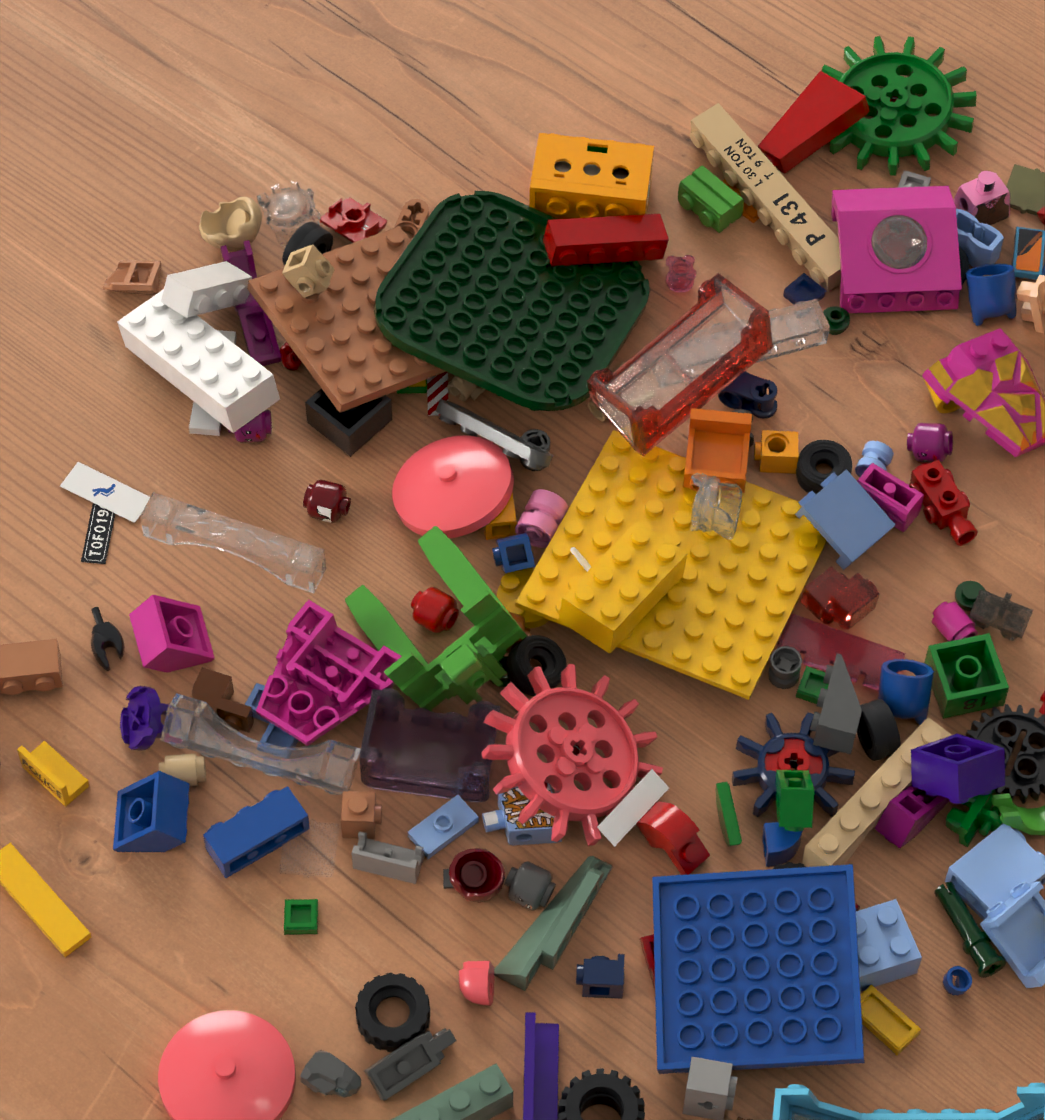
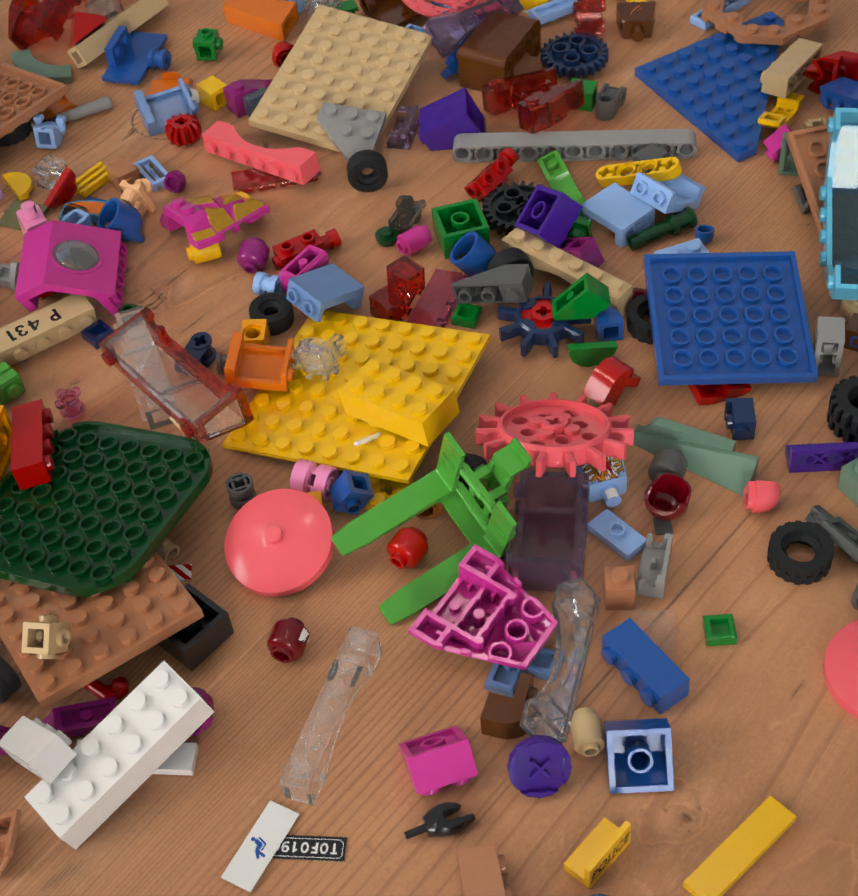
camera: 85 degrees left, 10 degrees down
(513, 445) = (214, 530): dark grey piece -> none
(633, 807) = (594, 401): white sticker -> none
(790, 663) = (454, 320): dark grey wheel -> none

